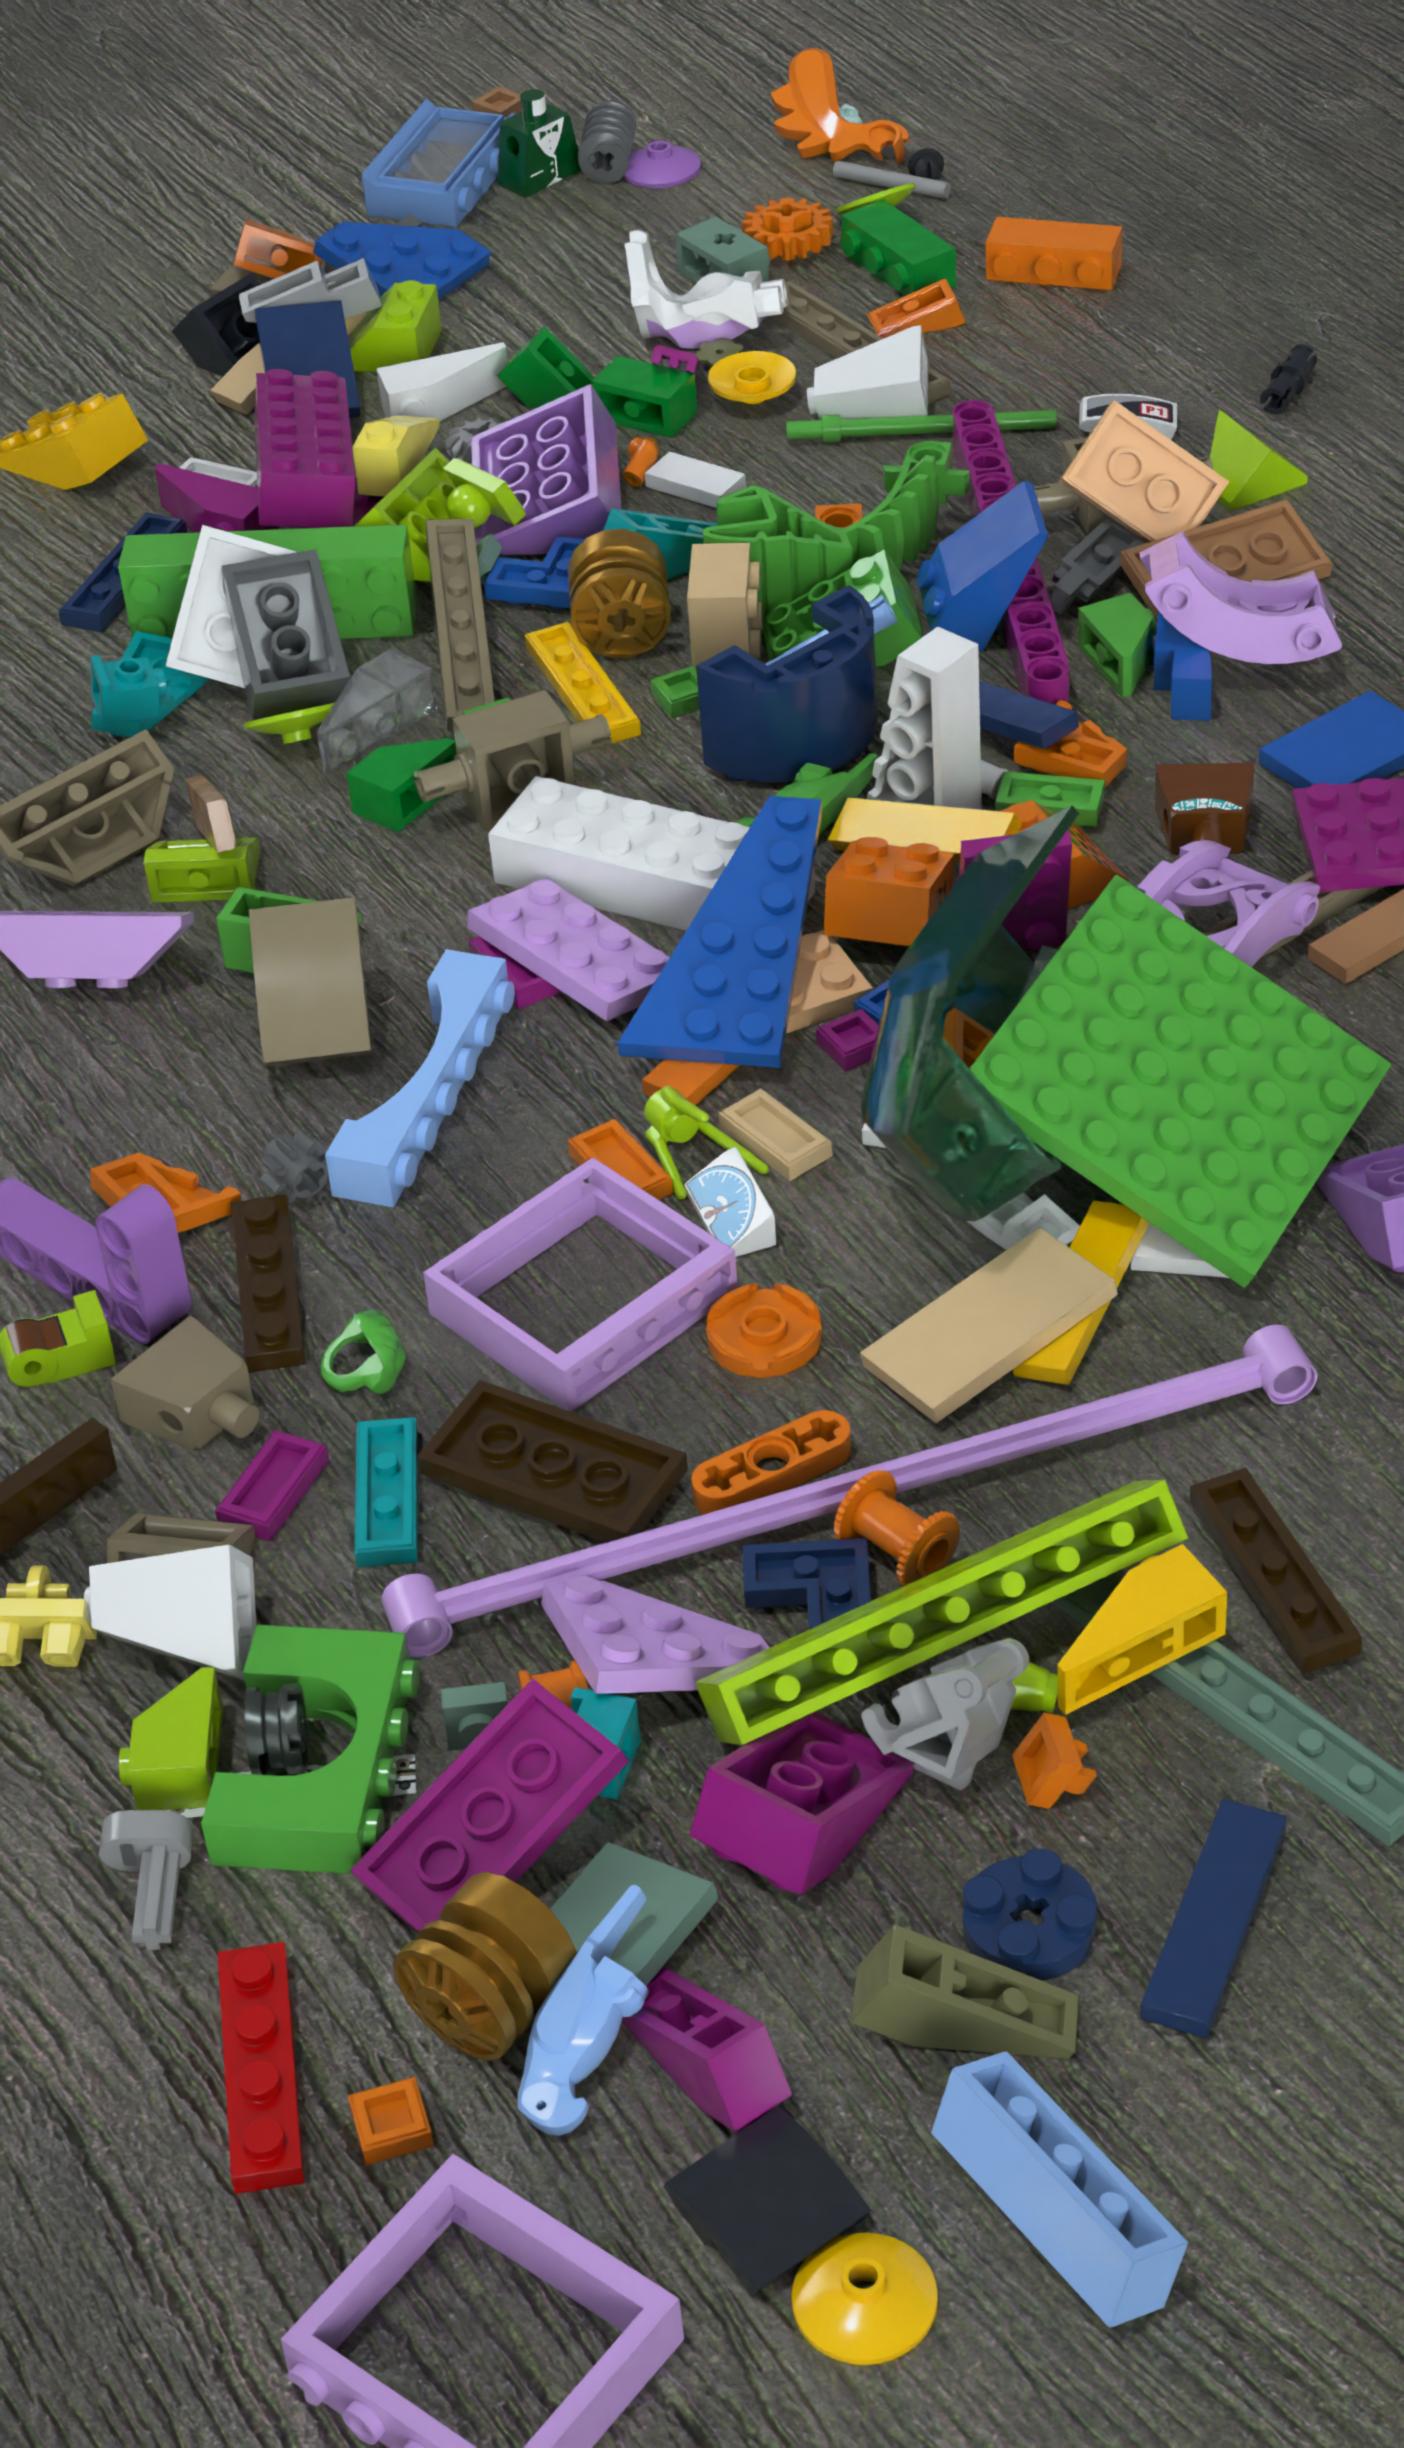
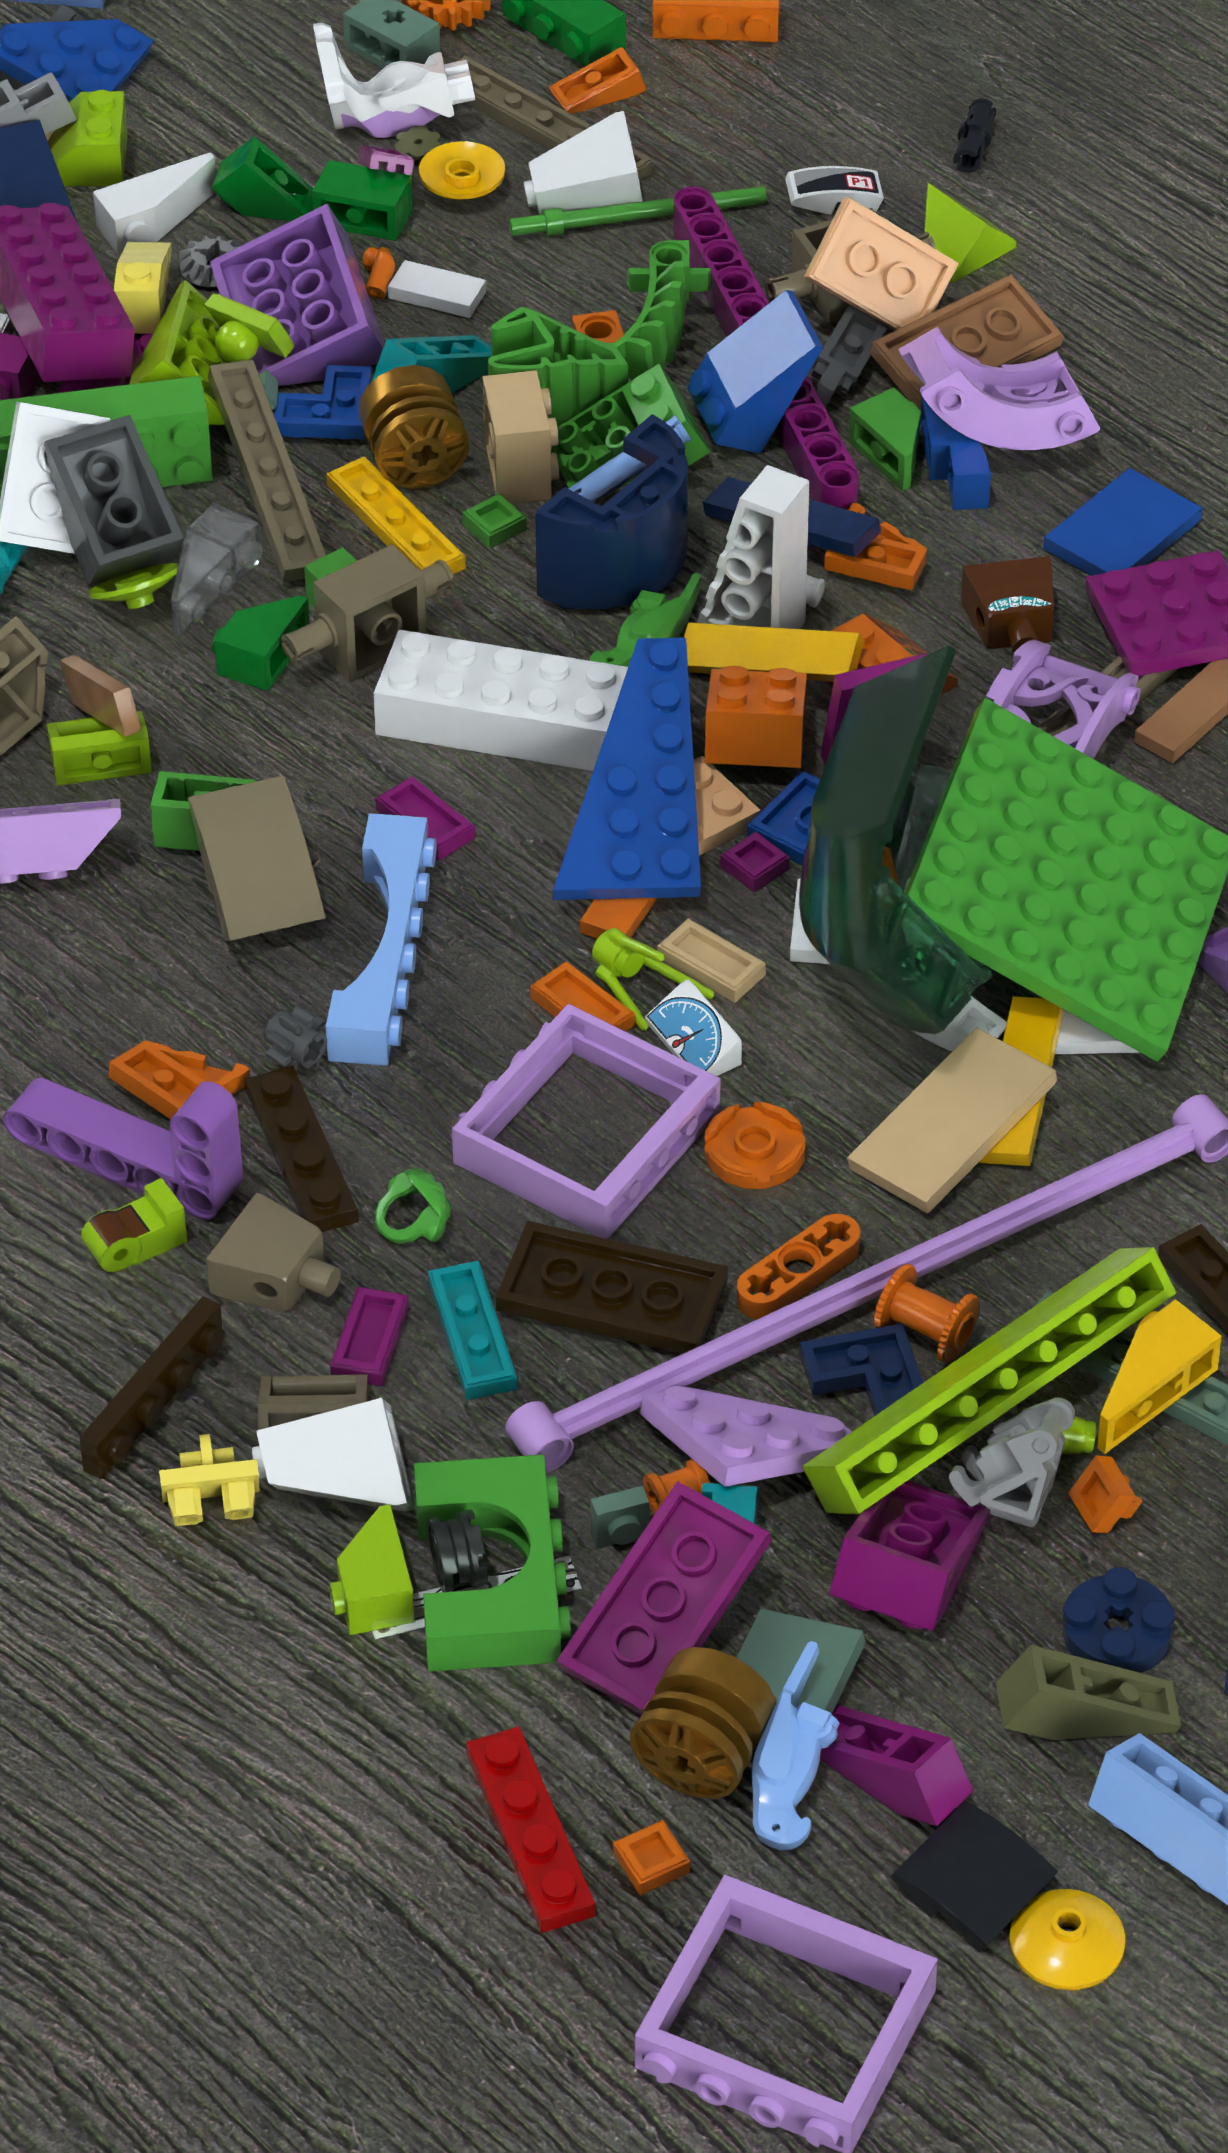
camera: 15 degrees left, 5 degrees up
(156, 1847) = (388, 1662): light grey piece -> none
(571, 946) = (478, 796): lavender plate -> none
(1054, 794) = (885, 601): bright green plate -> none

